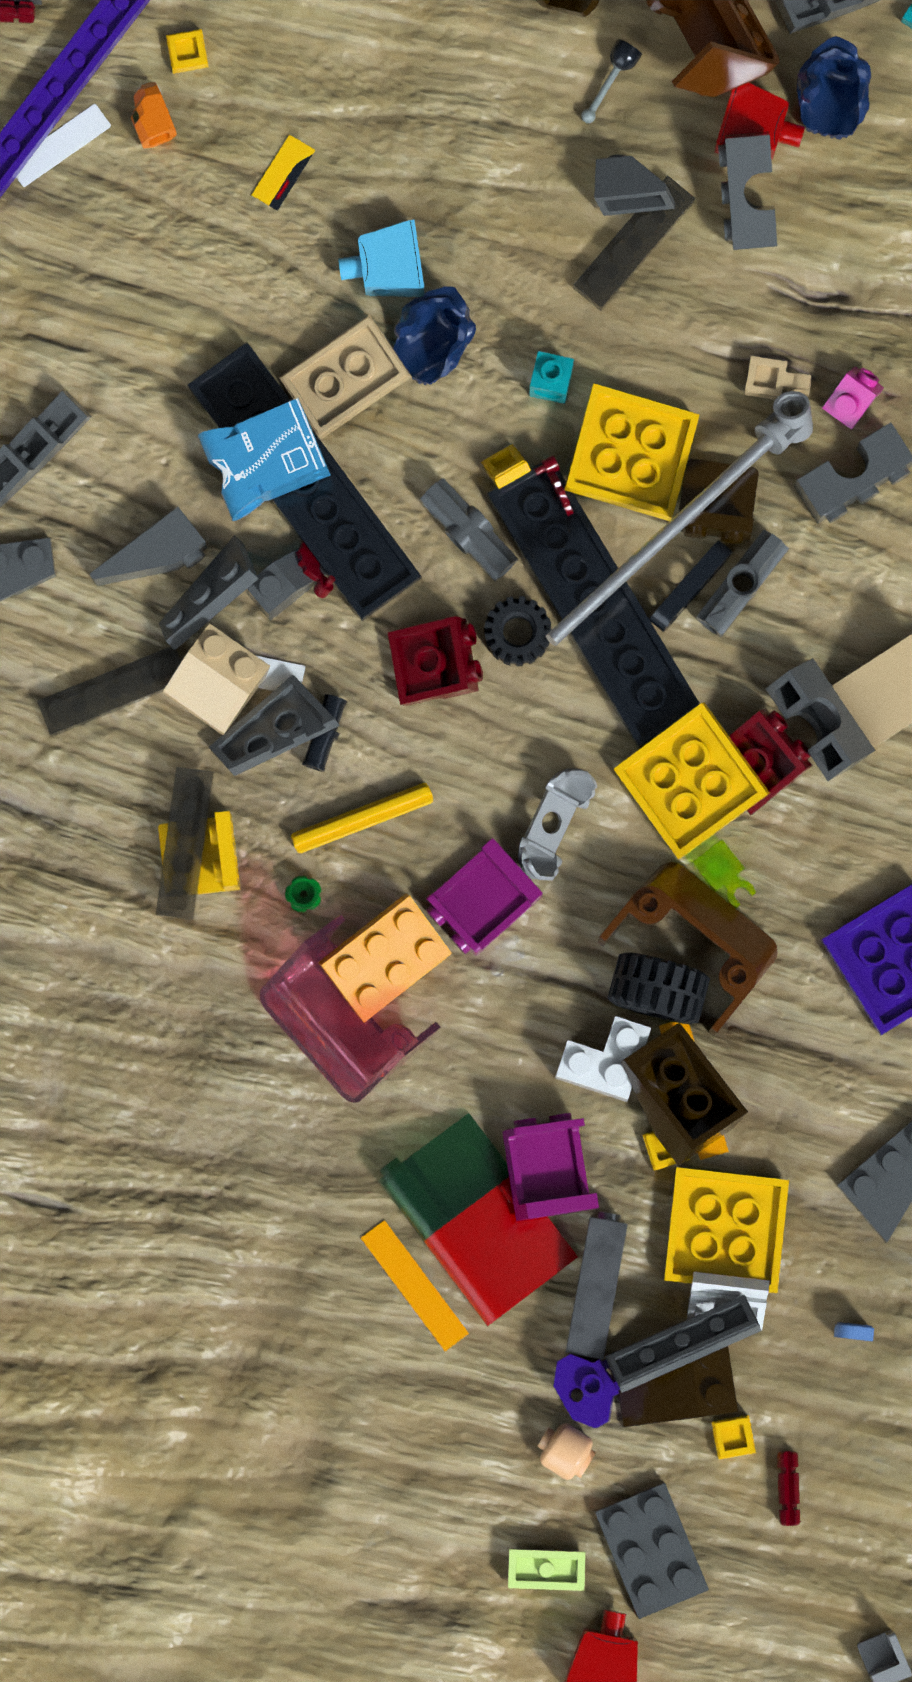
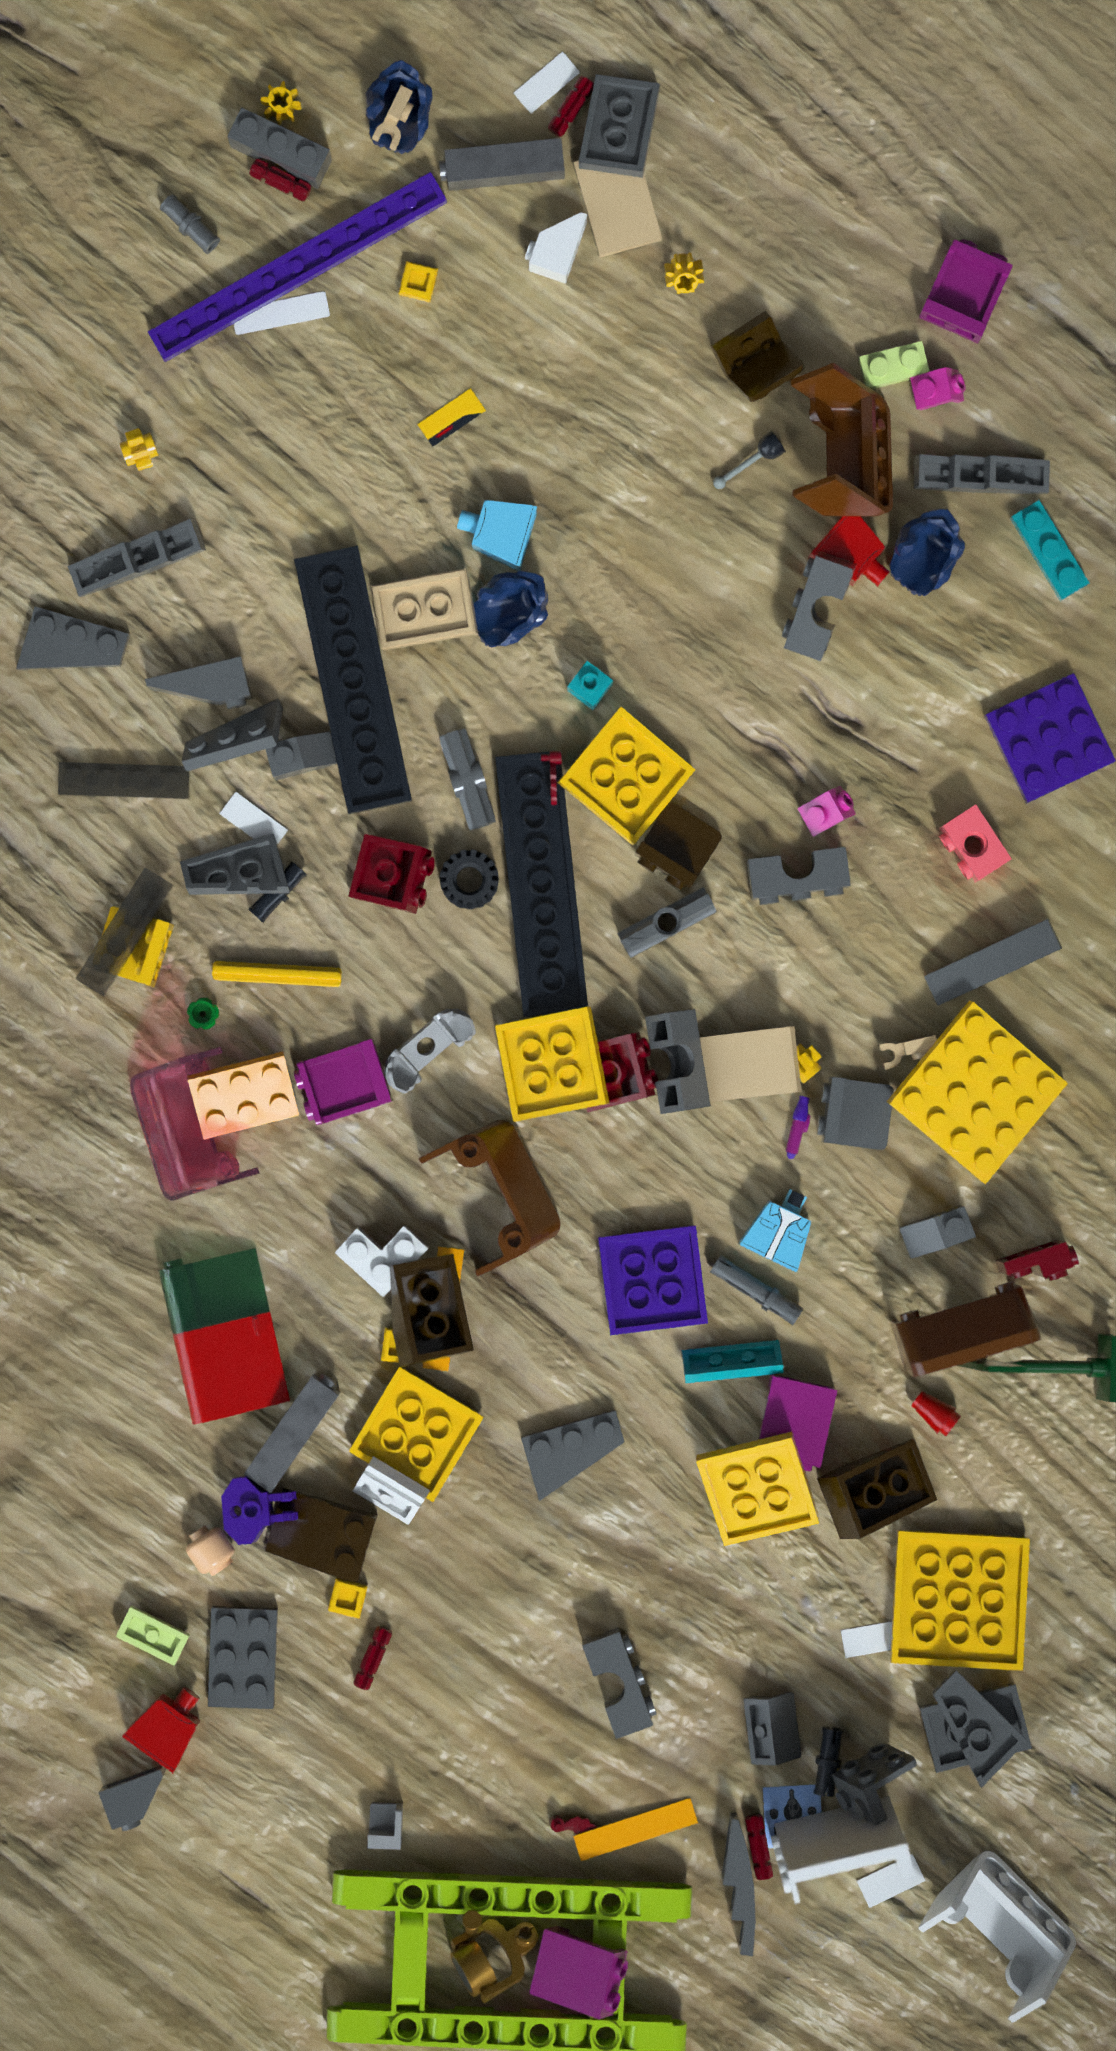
camera: 20 degrees right, 5 degrees up
(152, 117) = (364, 324): orange rock -> none
(216, 679) = (208, 810): tan slope -> none
(264, 457) = (328, 648): dark azure piece -> none
(312, 569) = (326, 754): dark red piece -> none
(414, 1285) = (151, 1364): light orange sticker -> none
(505, 466) = (520, 741): yellow tile -> none
(547, 1168) = (296, 1321): magenta panel -> none
(628, 187) = (722, 557): dark grey slope -> none
(631, 248) = (708, 604): clear smoke plate -> none
(658, 988) = (447, 1220): black tyre -> none
(683, 1343) = (337, 1510): dark grey tile -> none
(691, 586) = (625, 906): black beam -> none
(720, 869) = (543, 1144): clear neon green plate -> none
(769, 378) = (766, 764): tan plate -> none
(787, 424) = (747, 814): flat silver piece -> none
(854, 1331) = (479, 1559): medium blue tile -> none

